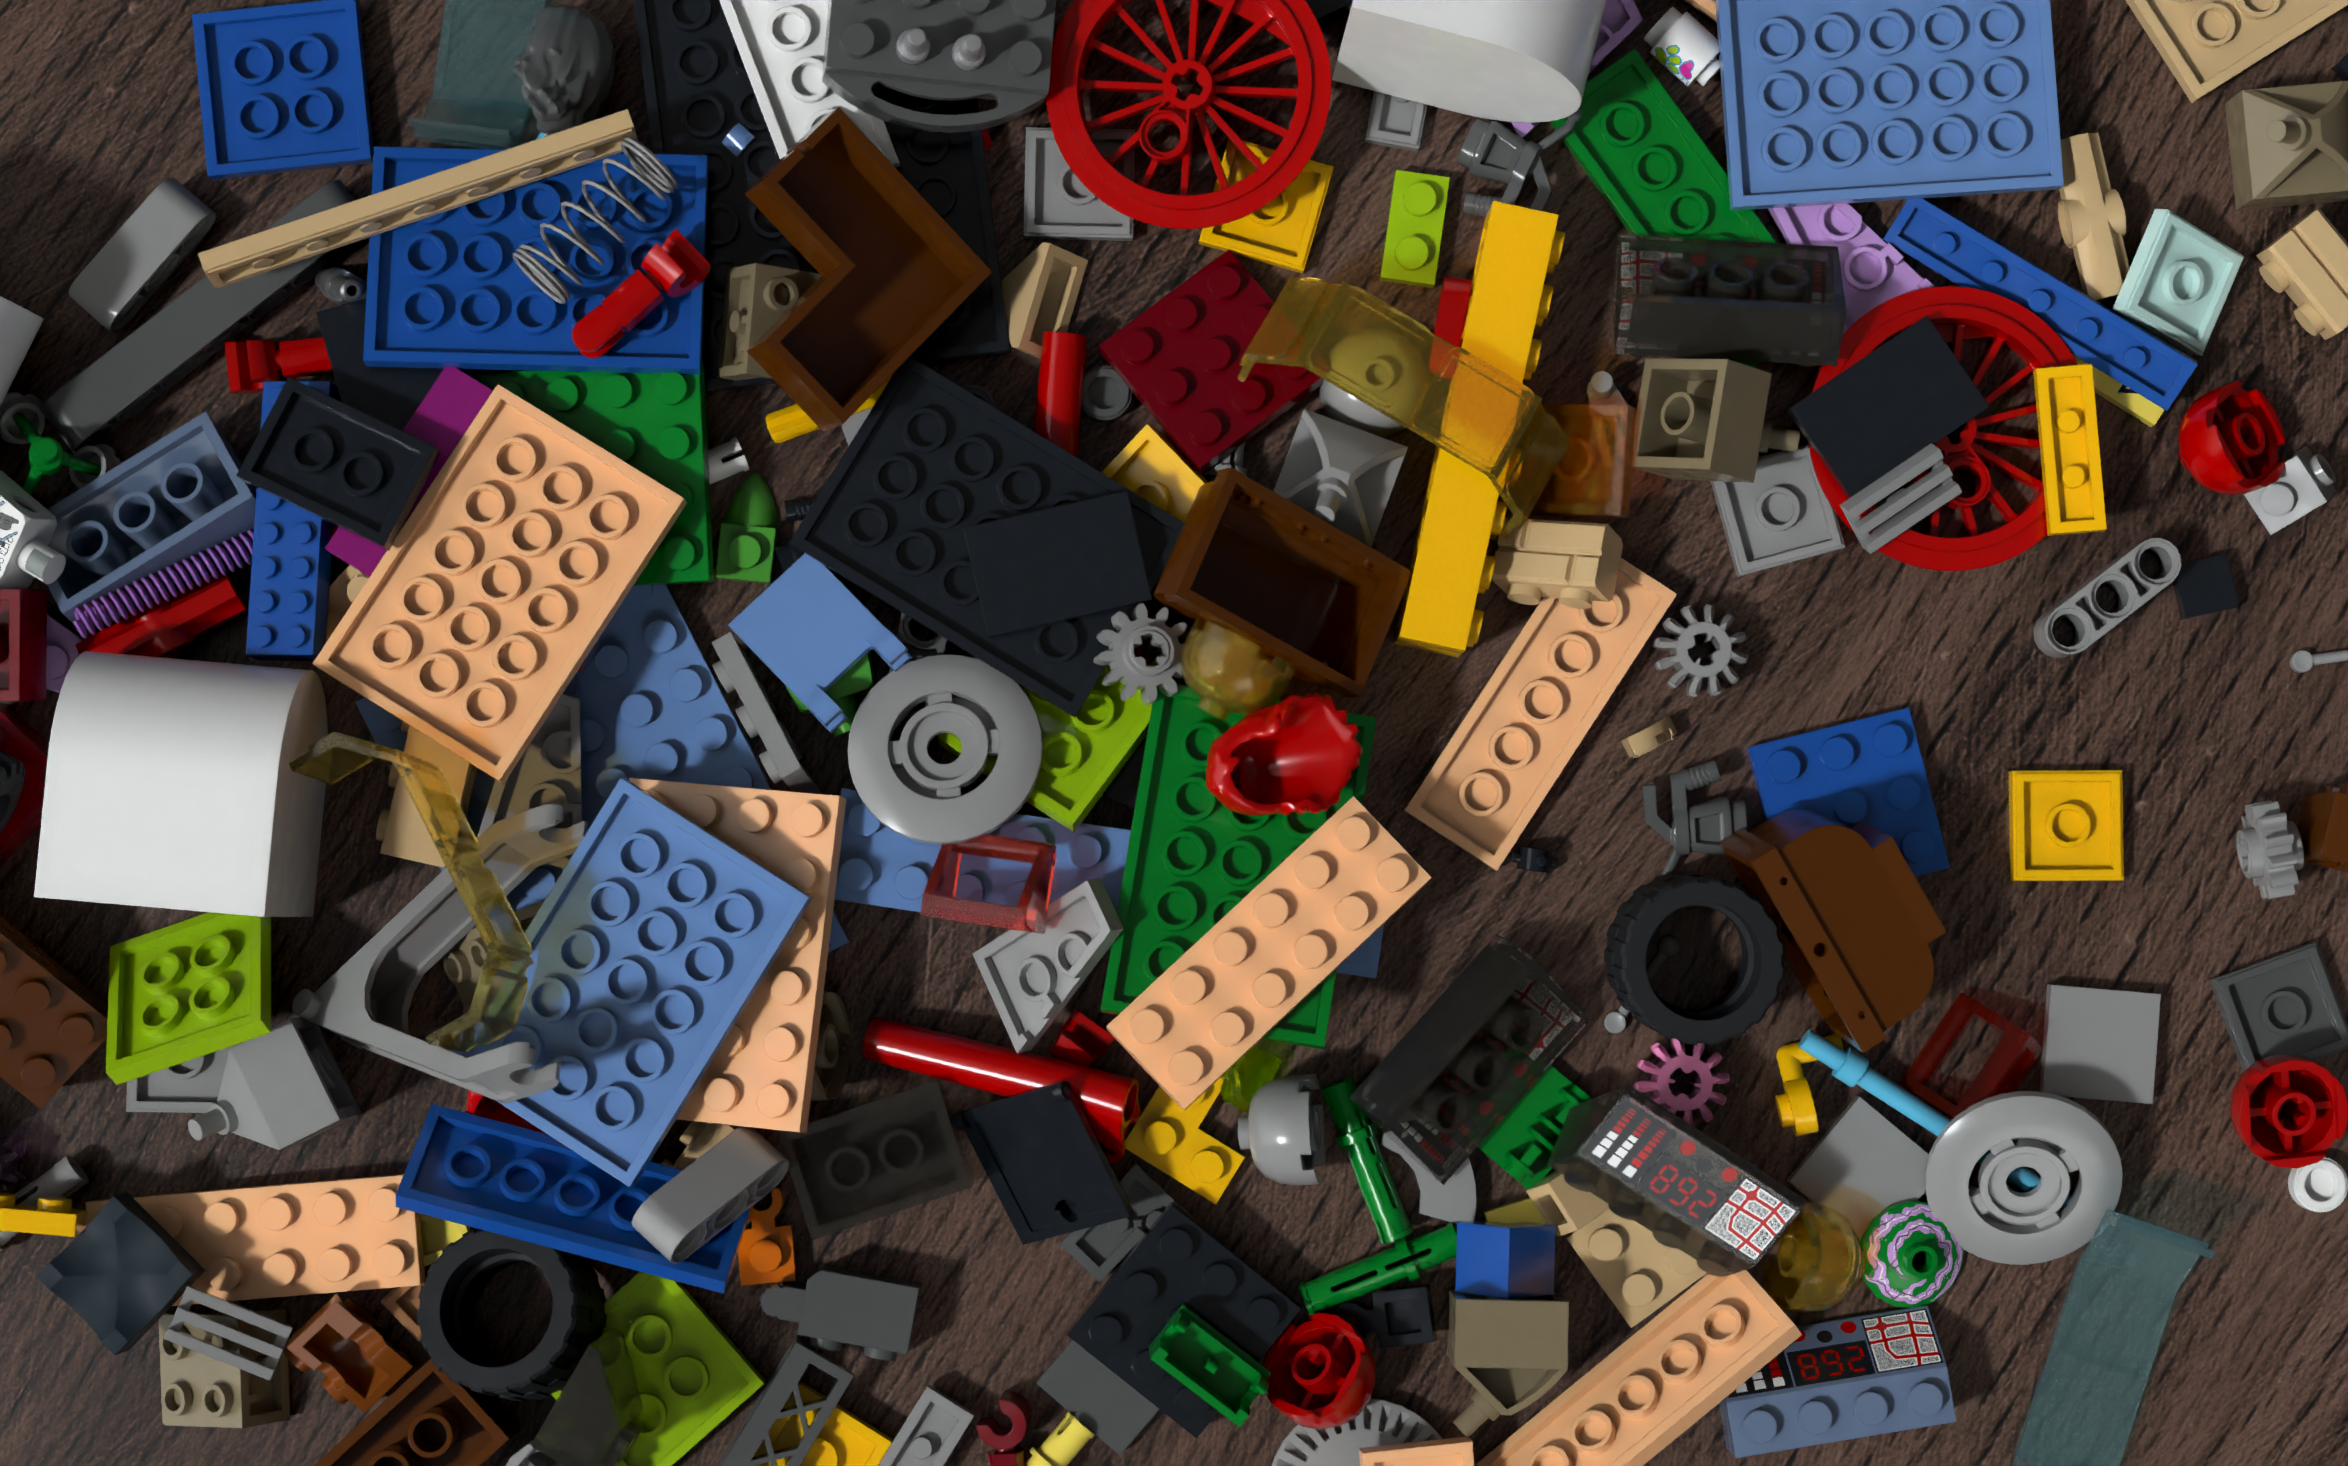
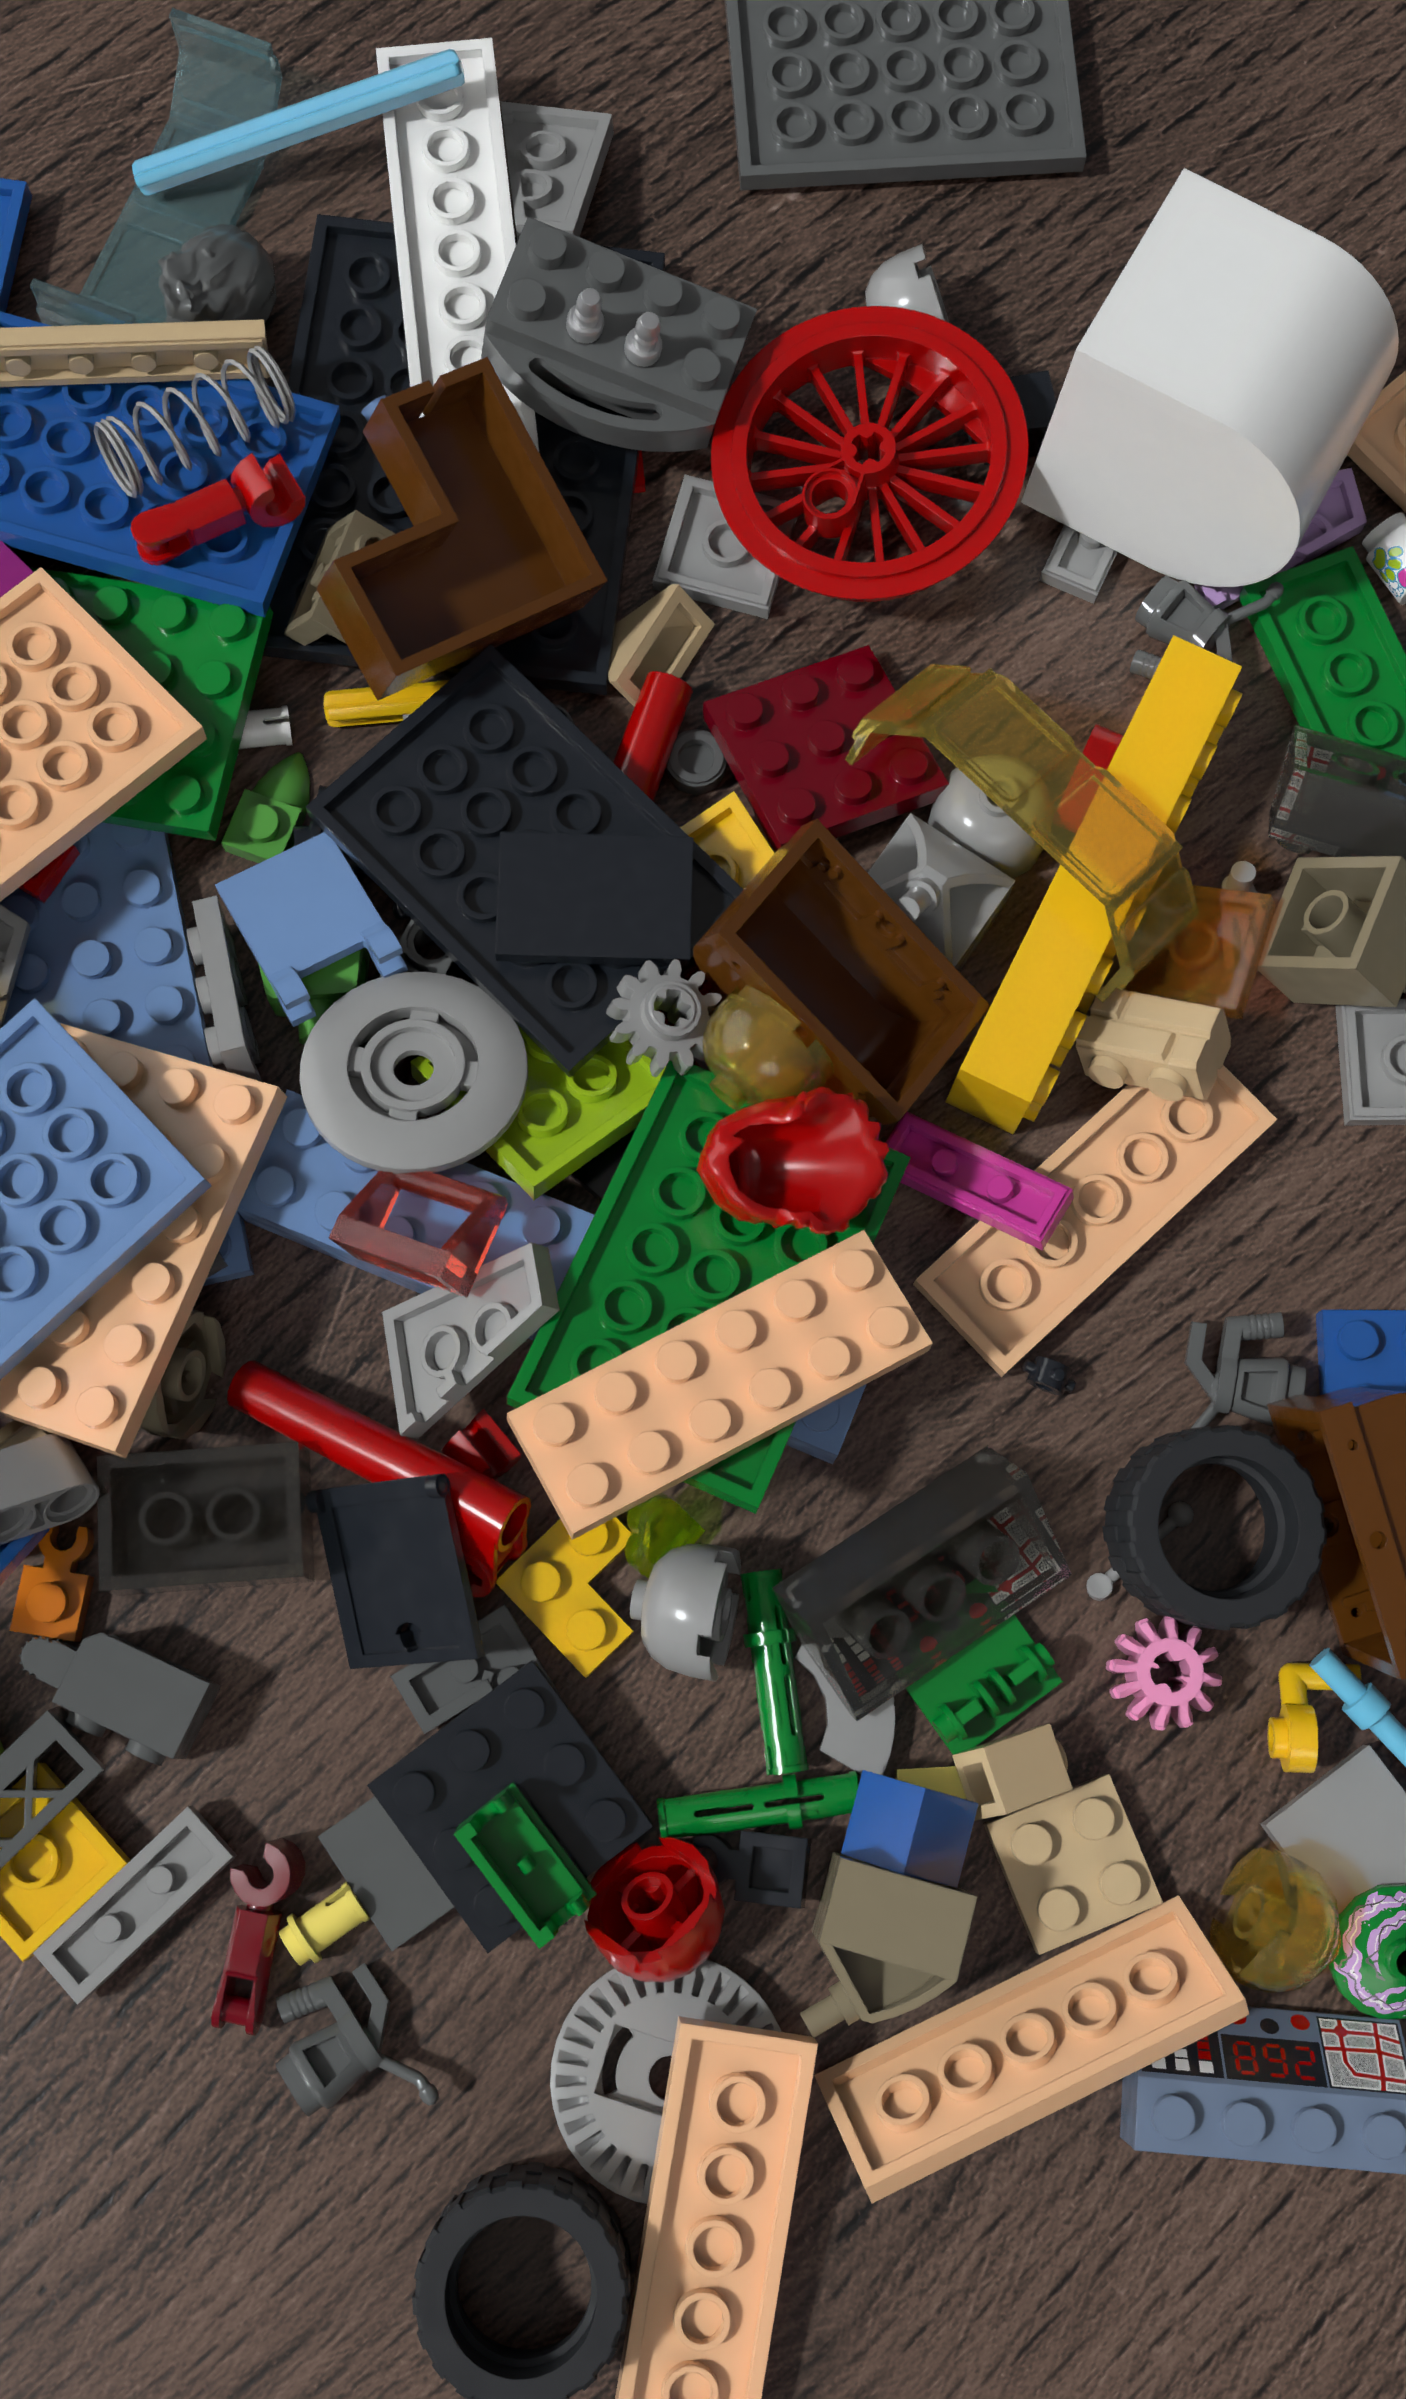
camera: 10 degrees right, 10 degrees down
(1281, 229) = (922, 627): yellow tile -> none
(1414, 228) = (1075, 671): lime plate -> none
(1437, 713) = (980, 1181): none -> dark pink tile
(1650, 737) = (1209, 1271): tan tile -> none
(1673, 1180) = (1136, 1782): slope -> none
(1715, 661) = (1304, 1170): light grey gear -> none

